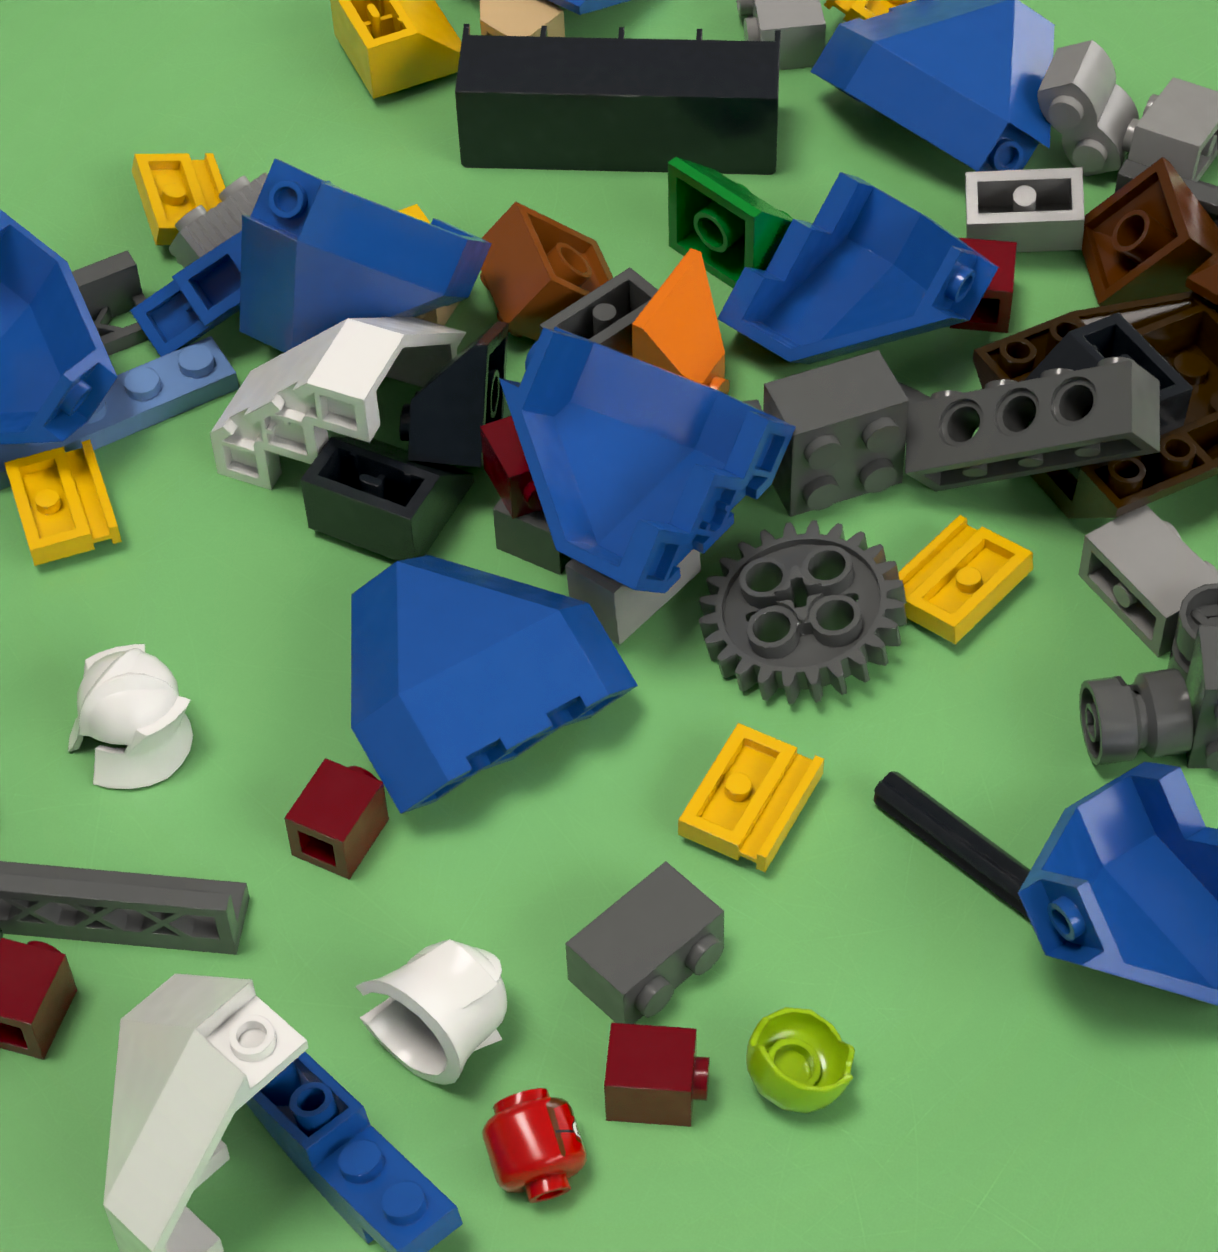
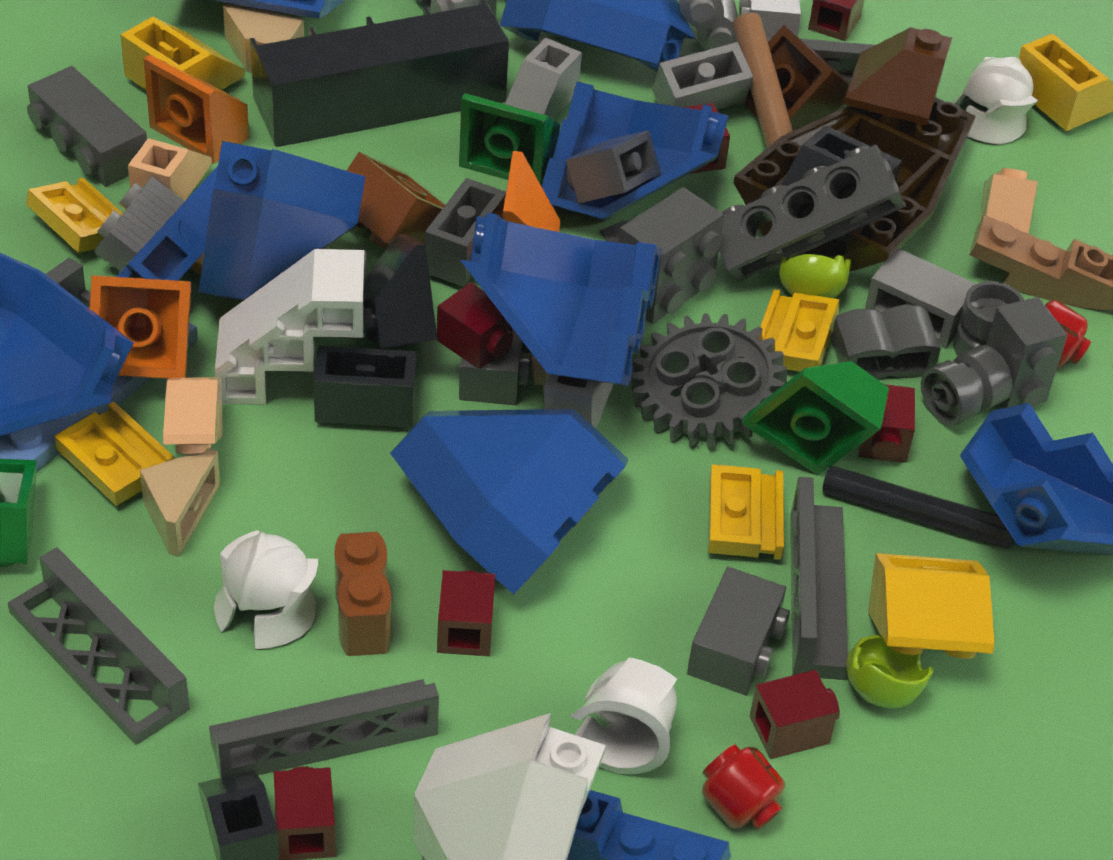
camera: 30 degrees left, 5 degrees down
(102, 575) = (179, 494): none -> tan slope
(155, 351) = (152, 317): none -> orange slope
(156, 481) = (193, 413): none -> light nougat slope
(230, 757) = (362, 593): none -> dark orange brick
(249, 90) = (85, 124): none -> dark grey brick
(310, 152) = (171, 165): none -> light nougat slope
(378, 100) = (192, 109): none -> orange slope
(783, 916) = (817, 586): none -> dark grey fence
(811, 160) = (546, 79): none -> light grey slope
(827, 298) = (612, 166): none -> dark grey brick
(895, 697) = (821, 414): none -> green slope
(895, 995) = (932, 605): none -> yellow slope
(1000, 735) = (897, 428): none -> dark red brick
(1020, 513) = (815, 275): none -> lime hair
(1063, 627) = (887, 342): none -> dark grey brick
(1105, 220) = (765, 83): none -> medium nougat piece

